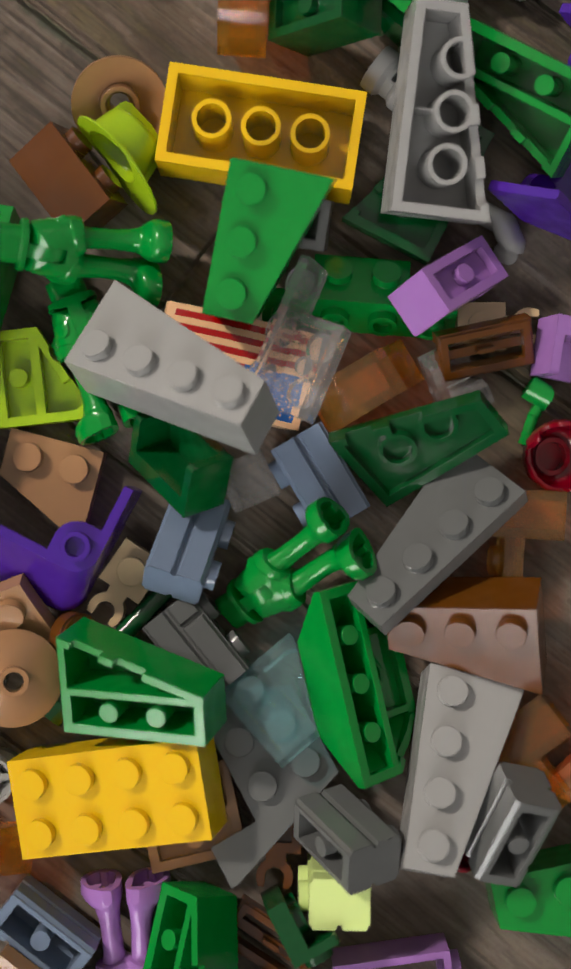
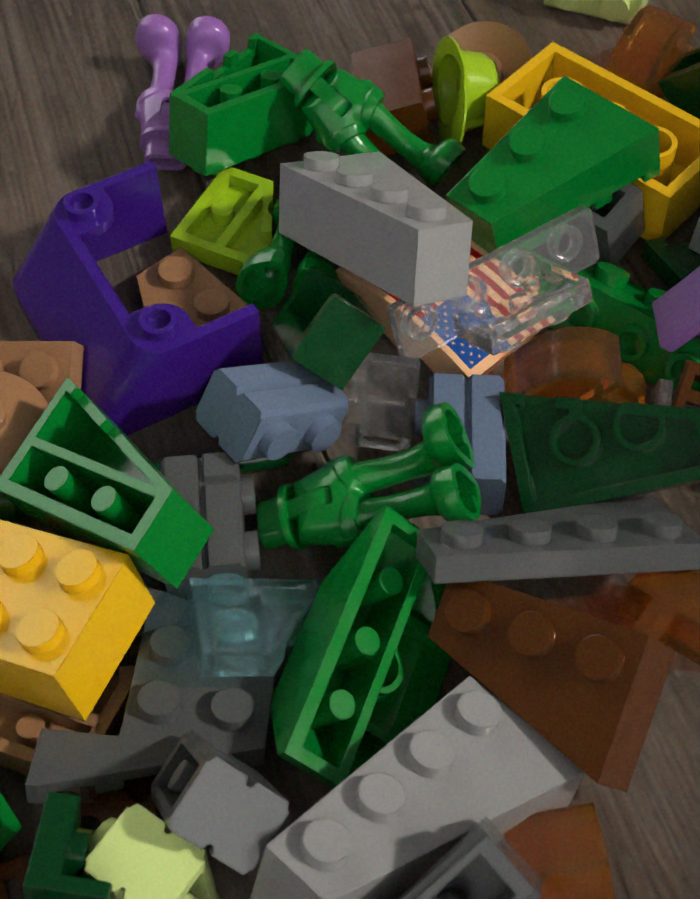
camera: 35 degrees right, 35 degrees down
(125, 579) = (174, 434): tan plate -> none

